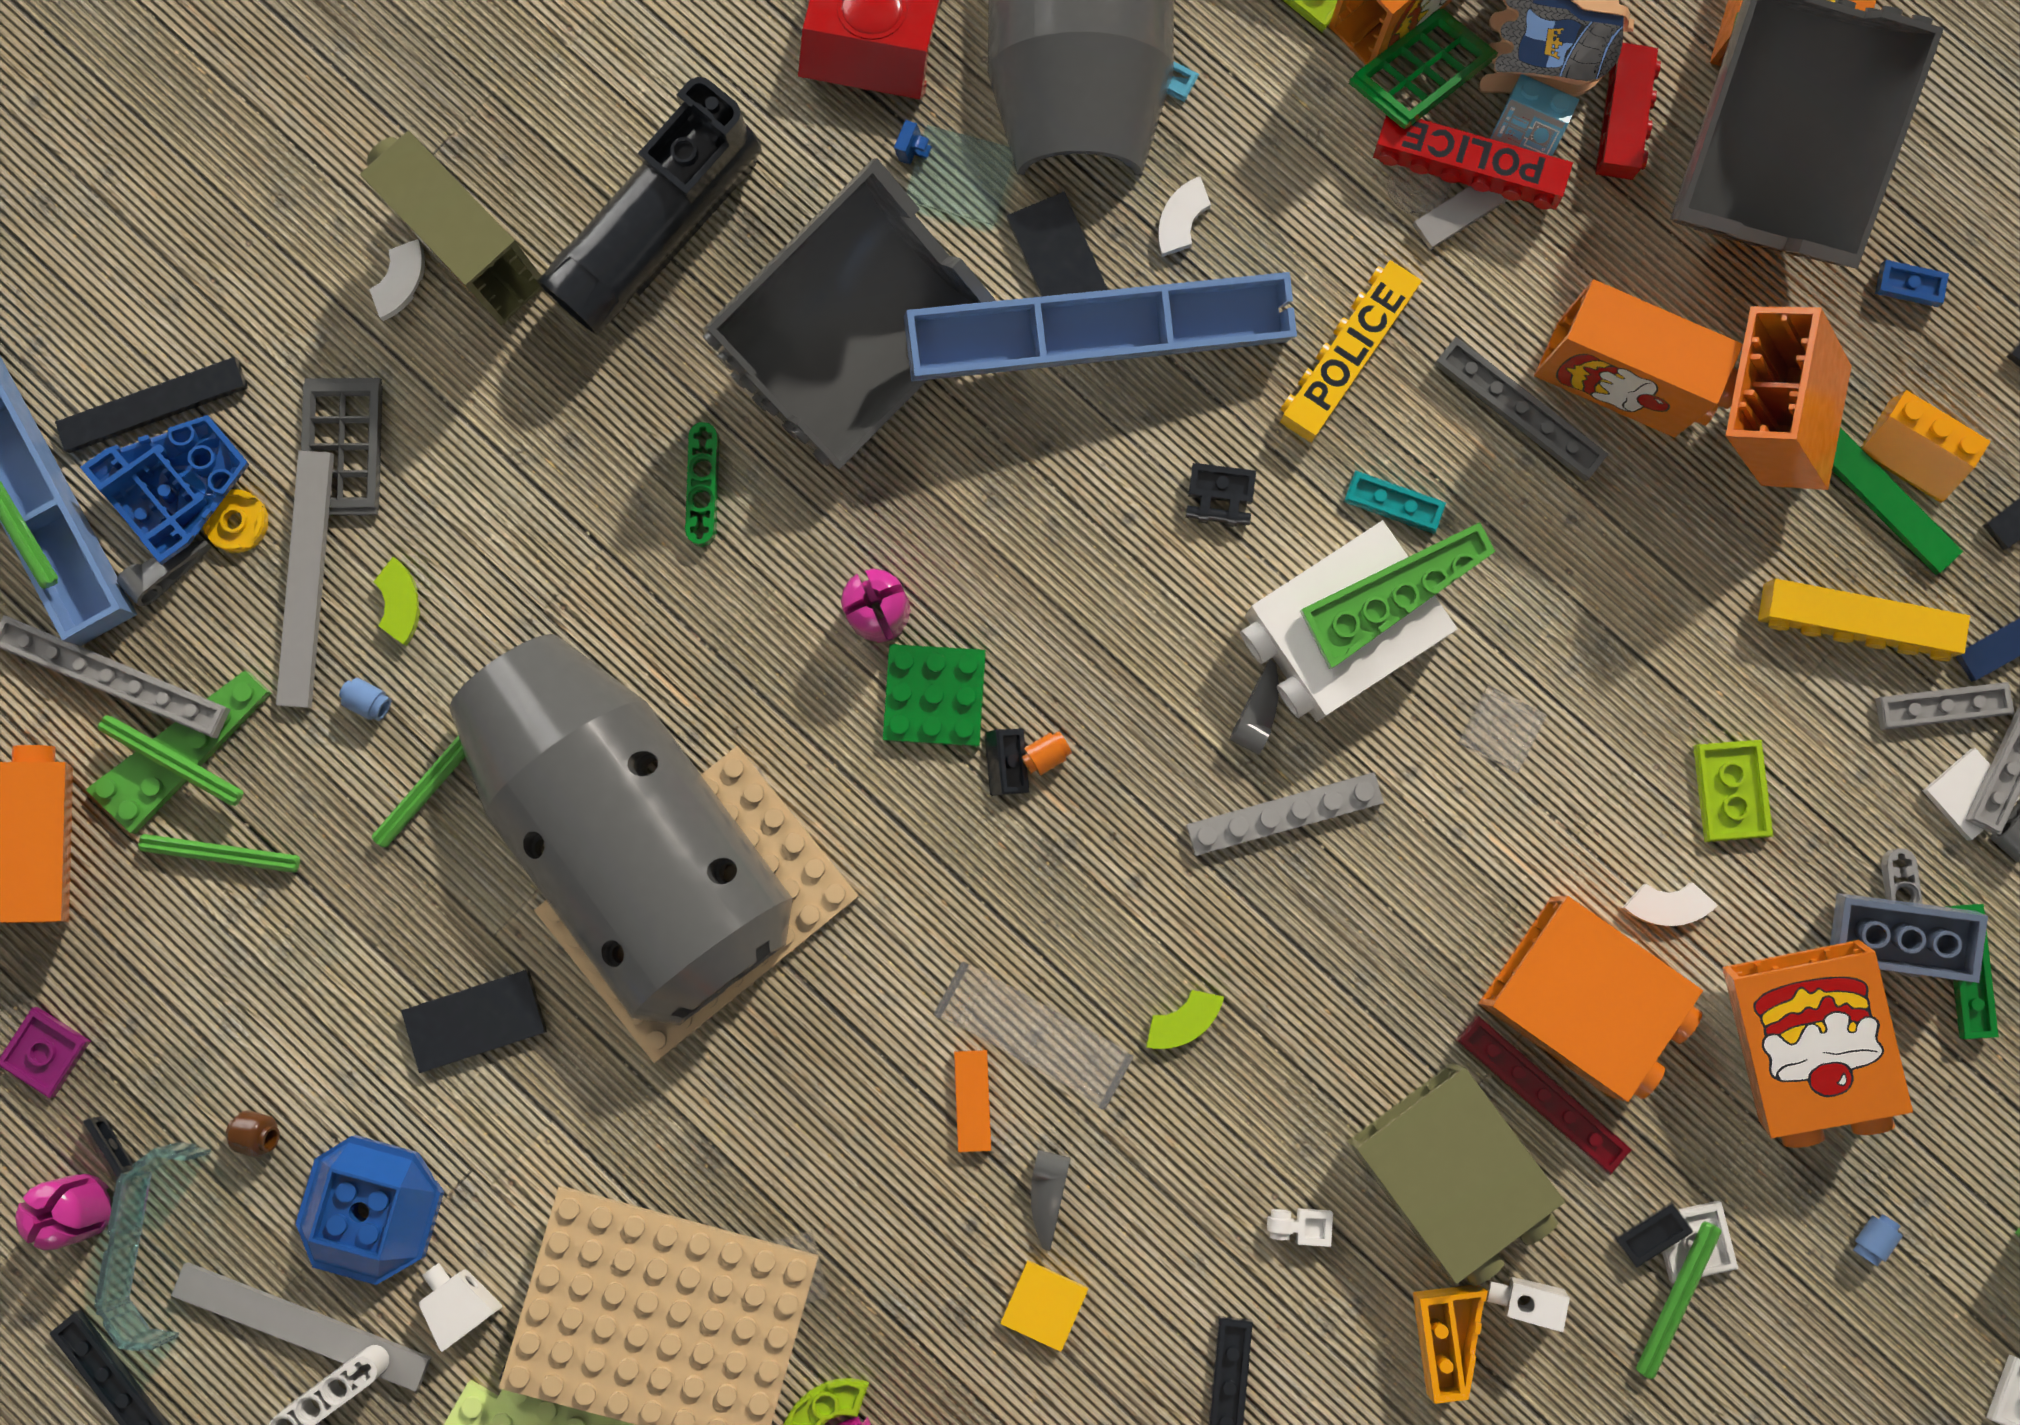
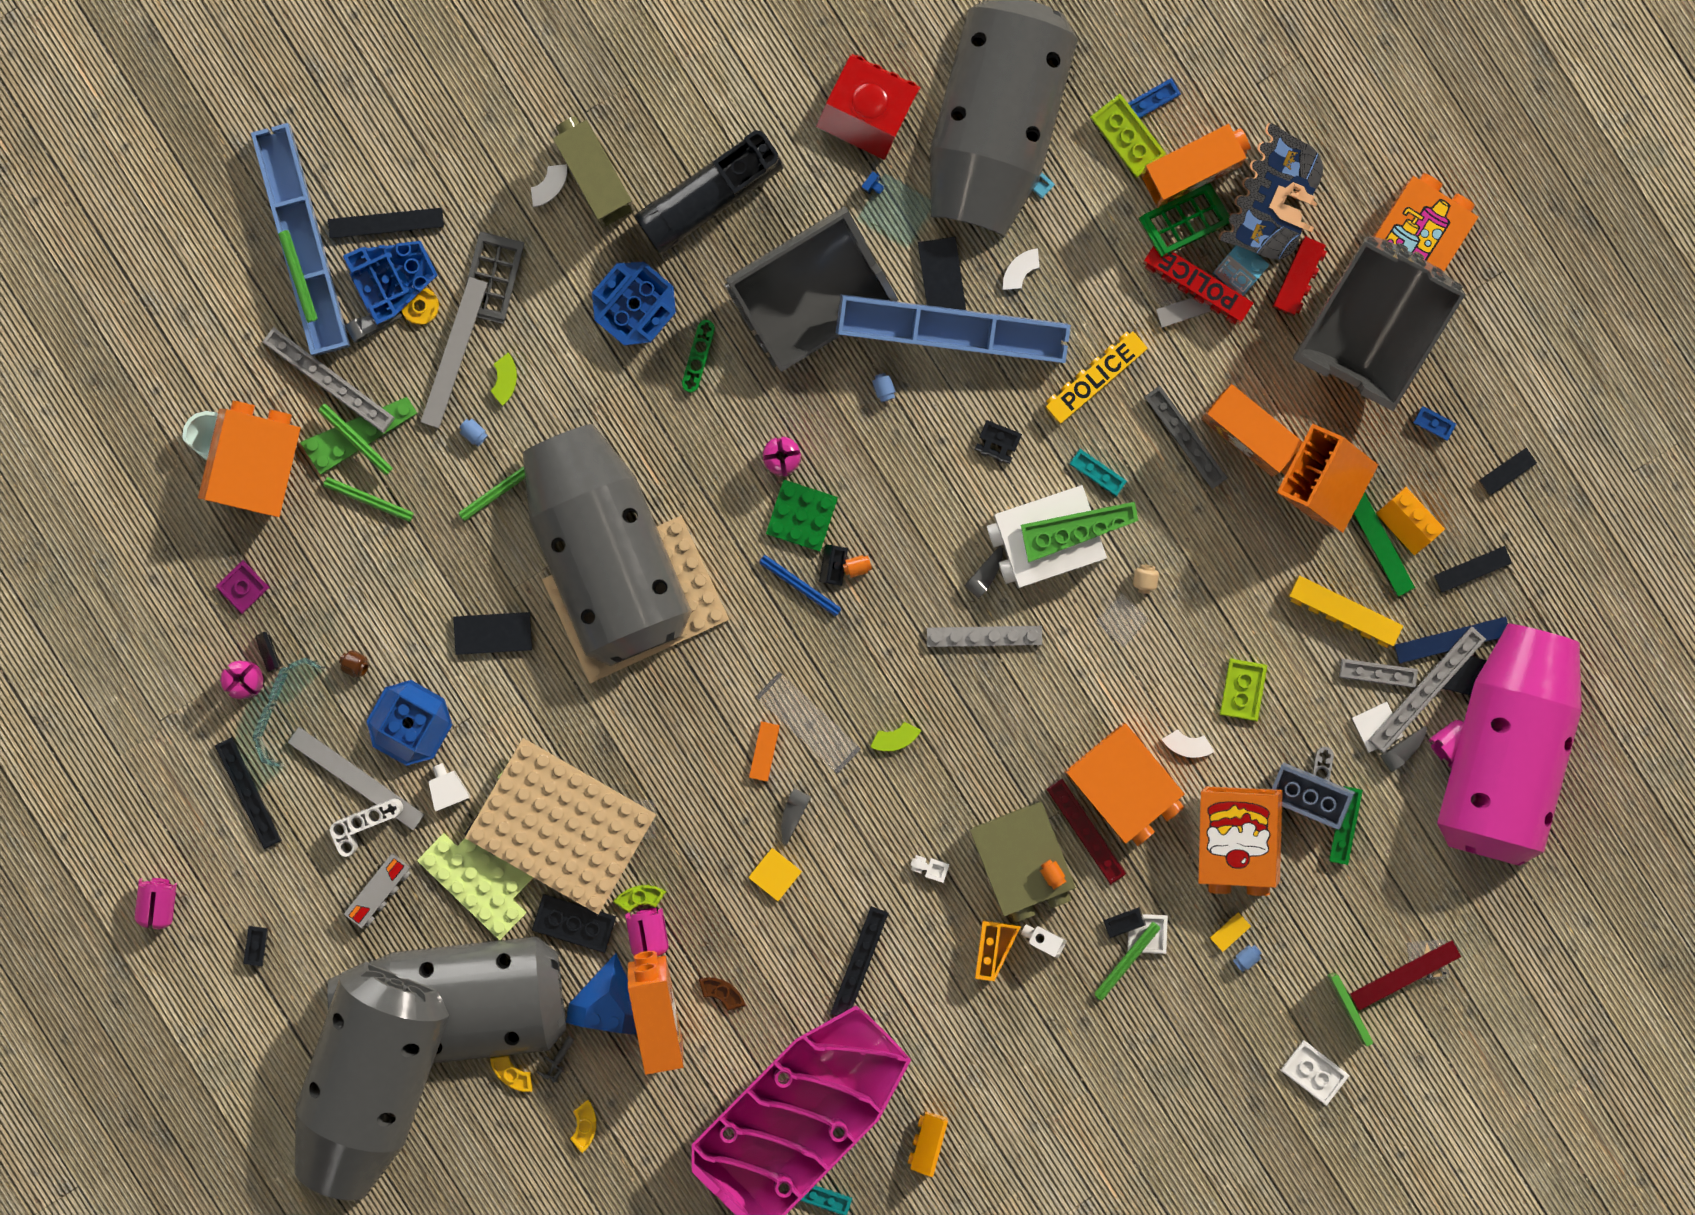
camera: 10 degrees right, 5 degrees up
(546, 405) = (627, 283): none -> blue piece
(961, 809) = (800, 585): none -> blue axle
(1013, 455) = (884, 387): none -> medium blue brick
(1522, 1189) = (1052, 874): none -> orange brick
(1523, 650) = (1145, 578): none -> tan head
(1833, 1202) = (1230, 931): none -> yellow tile

